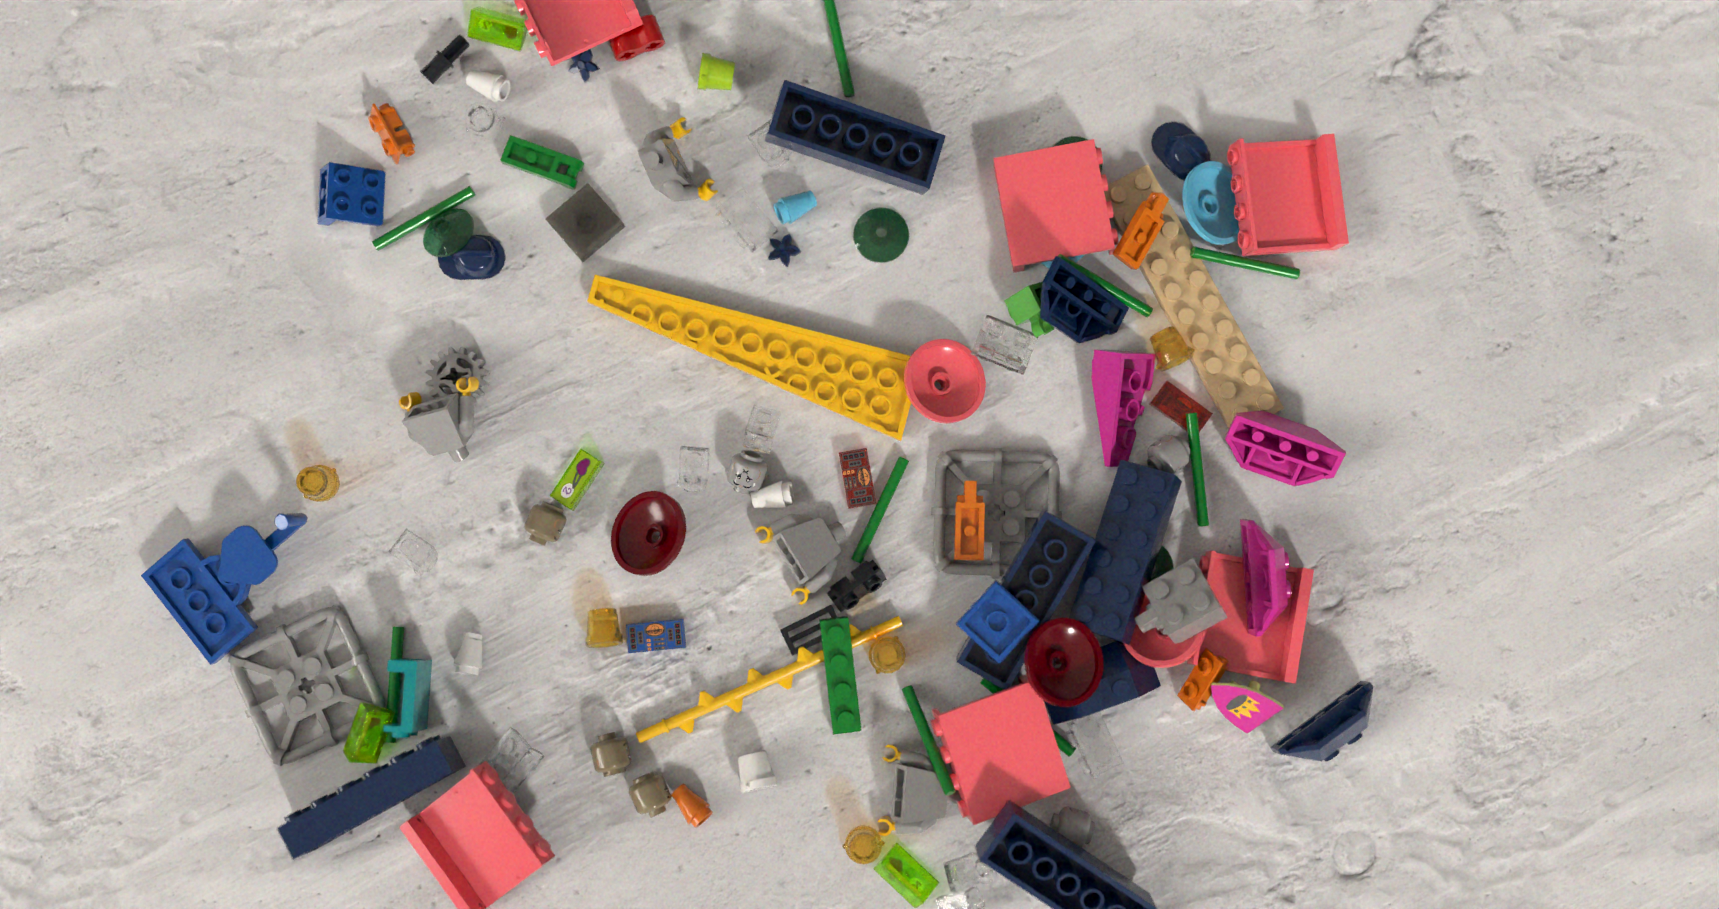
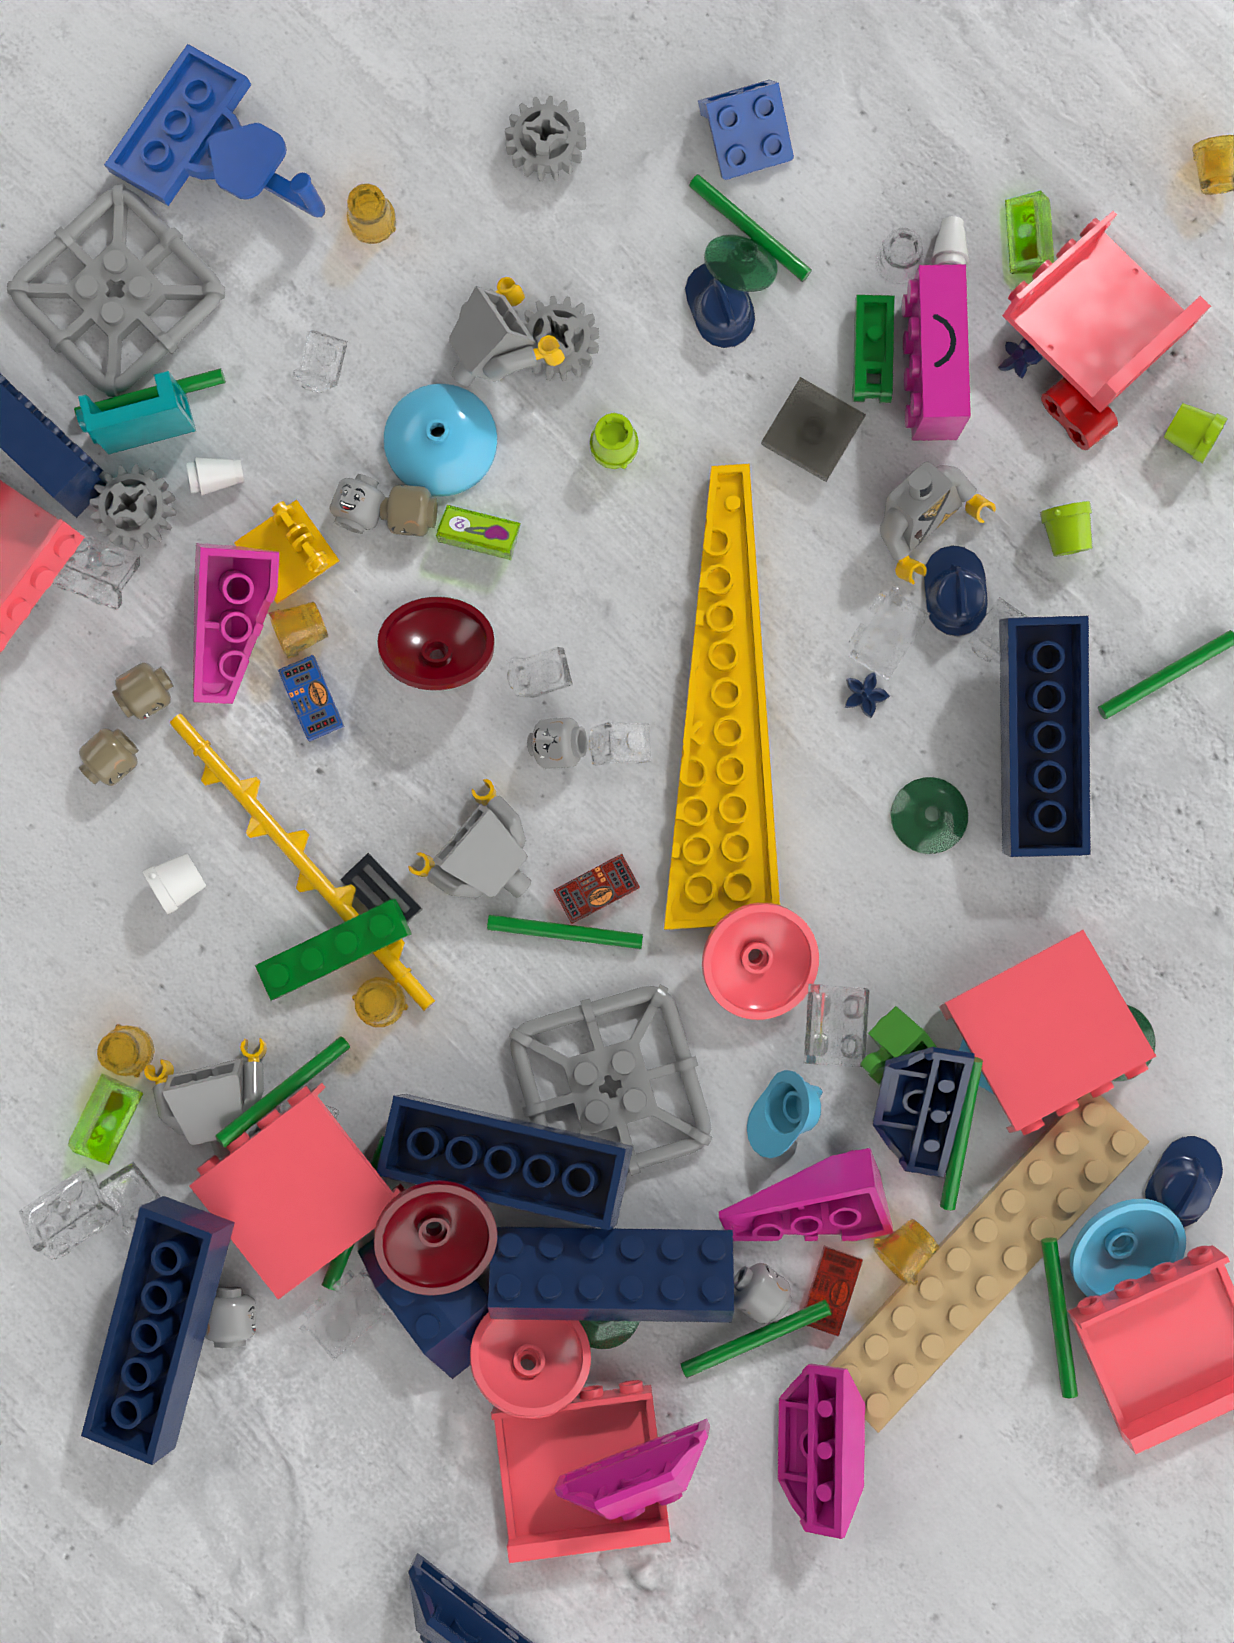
camera: 80 degrees right, 0 degrees up
(312, 328) = (541, 122): none -> light grey gear
(367, 733) = (67, 379): clear neon green slope -> none
(393, 142) = (834, 156): orange hinge -> none
(444, 60) = (964, 181): black axle -> none
(470, 710) = (121, 516): none -> light grey gear
(519, 488) = (446, 462): none -> medium azure dish
(527, 558) = (357, 503): none -> light grey head
(543, 620) = (300, 547): none -> yellow hinge
(545, 363) = (614, 441): none -> lime piece
(562, 119) = (937, 353): none -> dark pink brick
(571, 673) = (230, 607): none -> dark pink wedge
(691, 805) = (109, 815): orange cone -> none
(731, 164) = (955, 590): none -> dark blue piece
(774, 496) = (538, 789): white cone -> none
(793, 207) = (927, 689): medium azure cone -> none
(868, 580) = (440, 924): black hinge -> none
(969, 524) = (580, 1054): orange hinge -> none
(997, 621) = (460, 1132): blue plate -> none
(1053, 401) = (783, 1113): none -> medium azure piece
(1141, 231) = (1053, 1161): orange hinge -> none
(1181, 603) = (564, 1373): light grey hinge -> none
(1198, 684) = (471, 1430): orange hinge -> none
(1244, 705) = (458, 1500): dark pink shield -> none

